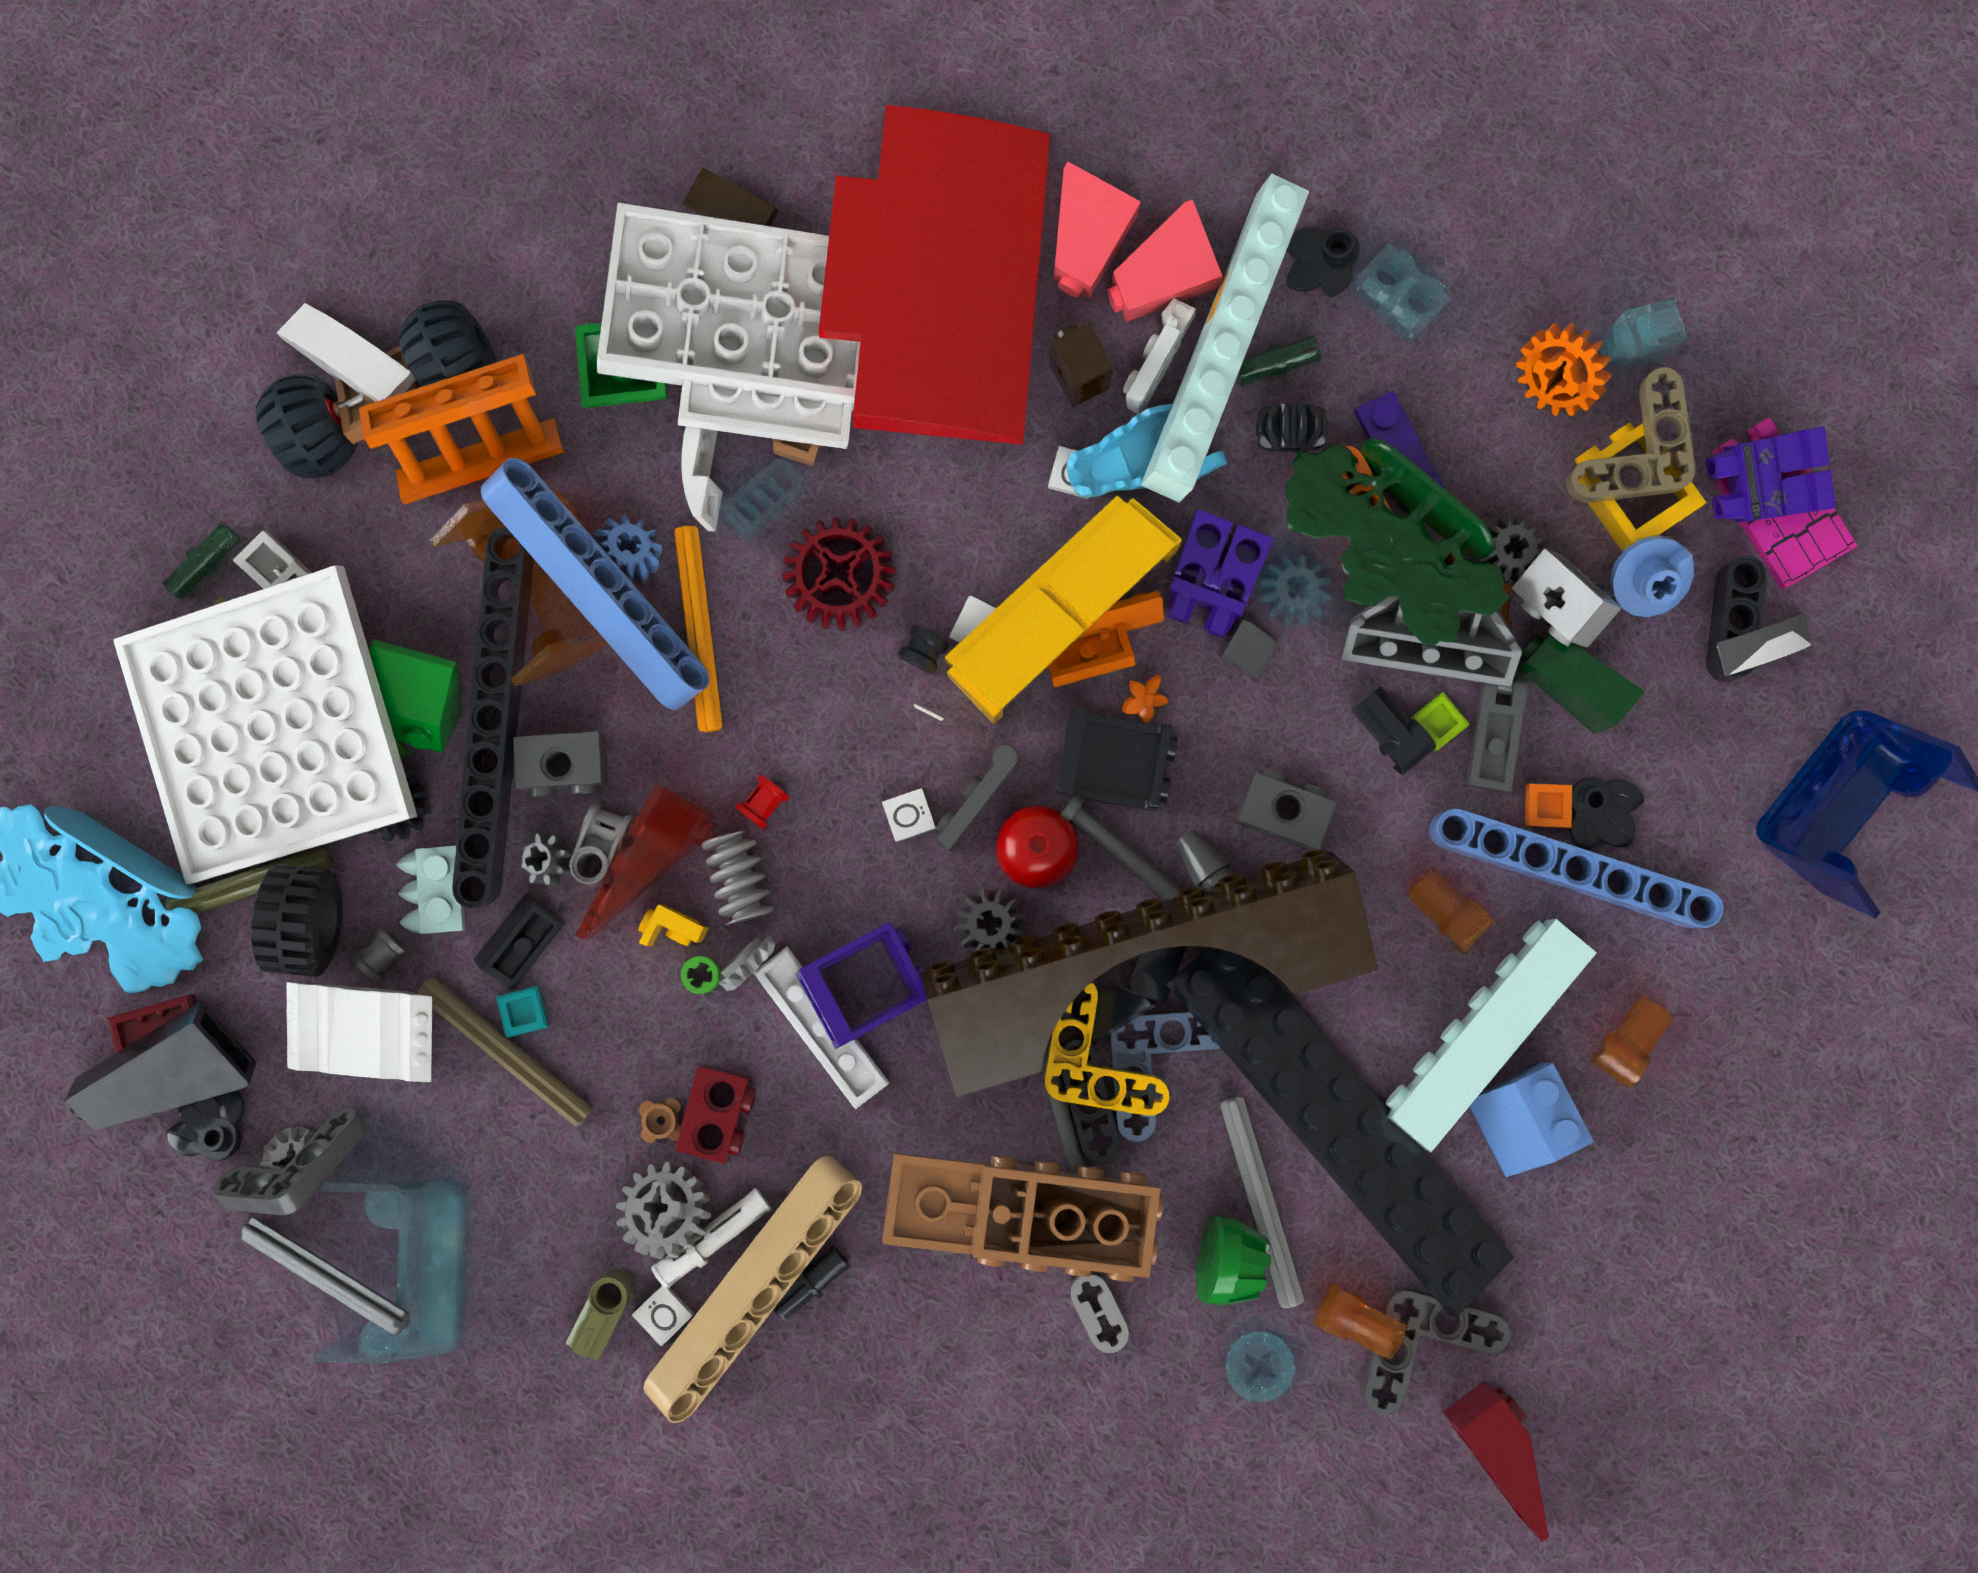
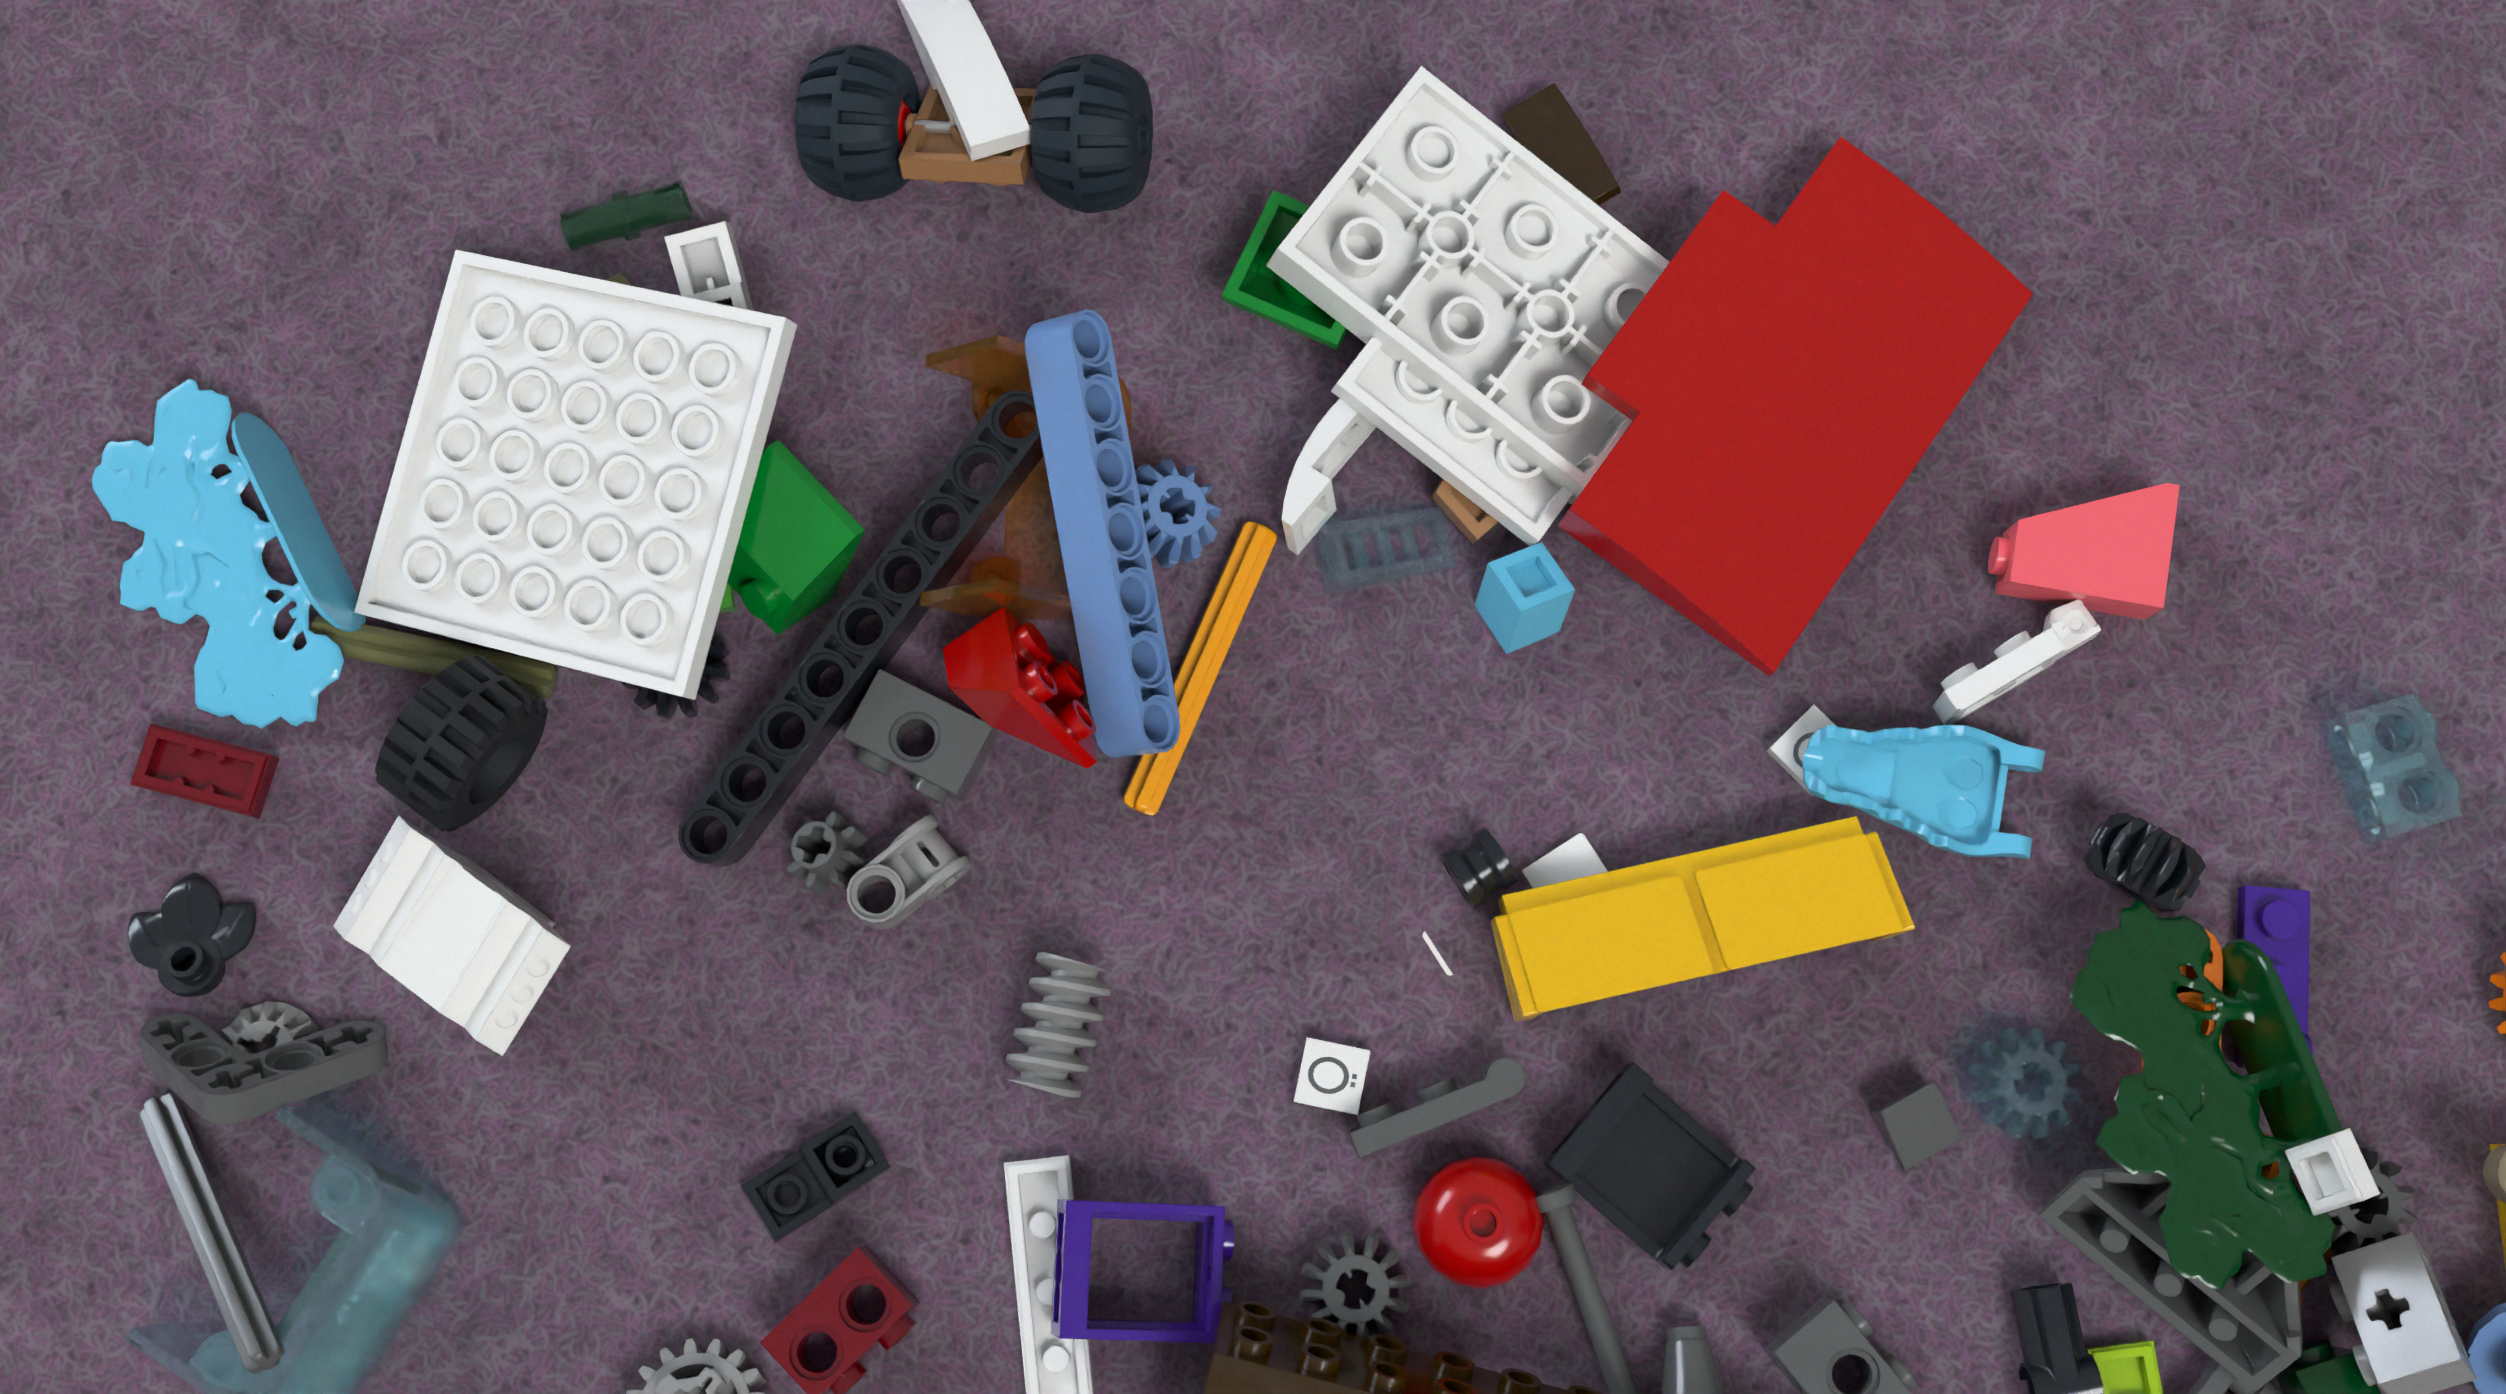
camera: 30 degrees right, 5 degrees down
(165, 1069) = (181, 835): slope -> none
(379, 953) = (540, 847): flat silver bush -> none
(431, 891) = (655, 805): light aqua plate -> none
(452, 400) = (1061, 195): orange fence -> none
(506, 1052) = (622, 1074): dark tan axle -> none
(519, 941) = (726, 938): black slope -> none
(522, 1011) = (676, 1033): teal tile -> none
(601, 700) = (1021, 687): none -> red slope
(651, 1044) = (815, 1177): none -> black slope
(651, 1111) = (748, 1293): medium nougat plate -> none
(663, 837) = (994, 915): clear red wedge -> none
(680, 926) = (945, 1043): yellow bracket -> none
(694, 963) = (935, 1105): bright green bush -> none
(746, 962) = (1003, 1146): light grey gear -> none
(762, 802) = (1149, 944): red bush -> none
(854, 560) = (1457, 698): dark red gear -> none
(859, 480) = (1524, 597): none -> medium azure panel
(1080, 363) = (1906, 614): dark brown brick -> none
(1090, 229) = (2016, 446): coral slope -> none
(1106, 643) = (1729, 1005): orange bracket -> none
(1144, 699) = (1736, 1108): orange plant -> none
(1215, 586) = (1908, 1000): dark purple hips -> none
(1225, 339) = (2120, 694): light aqua brick -> none
(1278, 360) = (2172, 761): clear green pin -> none
(1317, 264) = (2299, 663): black plate -> none
(1481, 540) = (2332, 1172): none -> white tile

